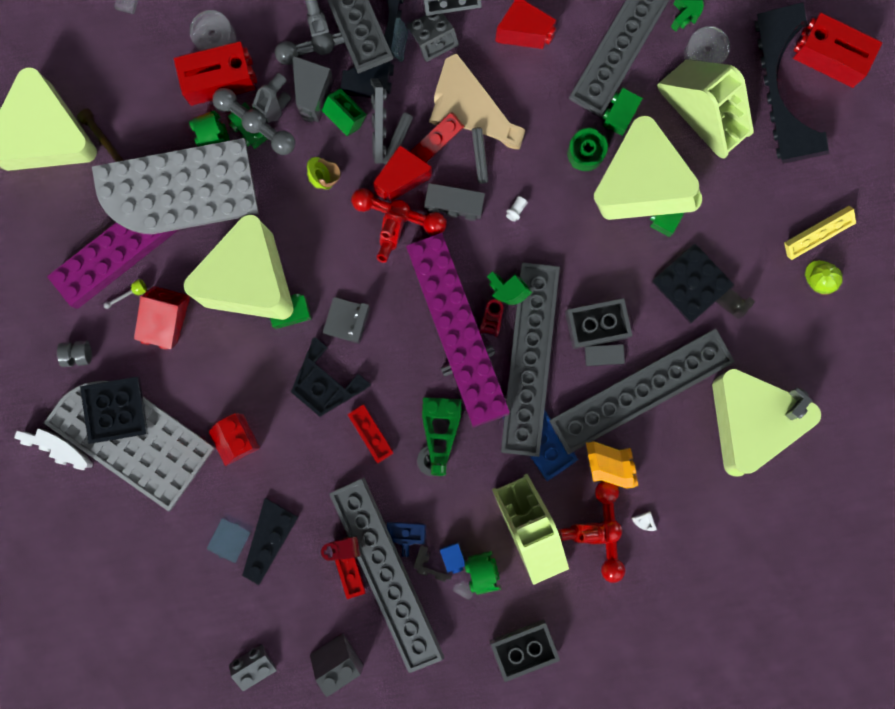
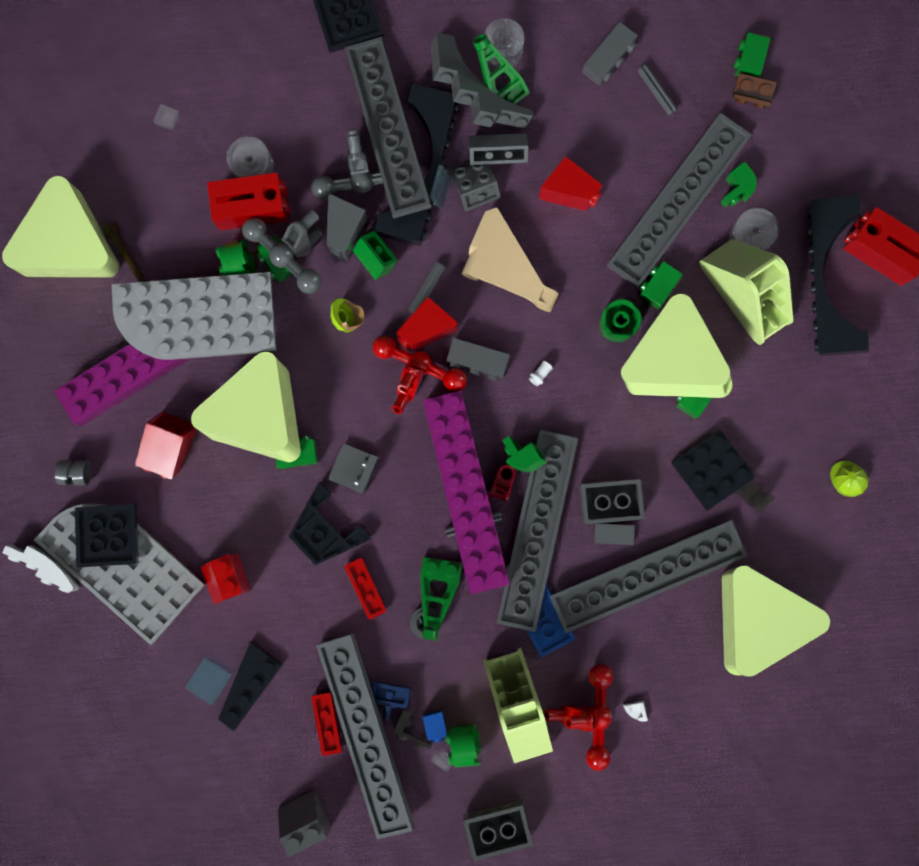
camera: 10 degrees right, 0 degrees up
(138, 288) = (145, 412): hinge -> none
(251, 668) = (217, 815): dark grey bracket -> none
(344, 548) = (325, 705): dark red piece -> none
(377, 99) = (411, 262): dark grey wing -> none
(438, 138) = (467, 292): red plate -> none
(480, 157) = (509, 314): dark grey axle -> none
(612, 465) = (608, 649): light orange brick -> none
(799, 409) = (807, 615): dark grey bracket -> none
(820, 232) = (850, 432): light yellow plate -> none

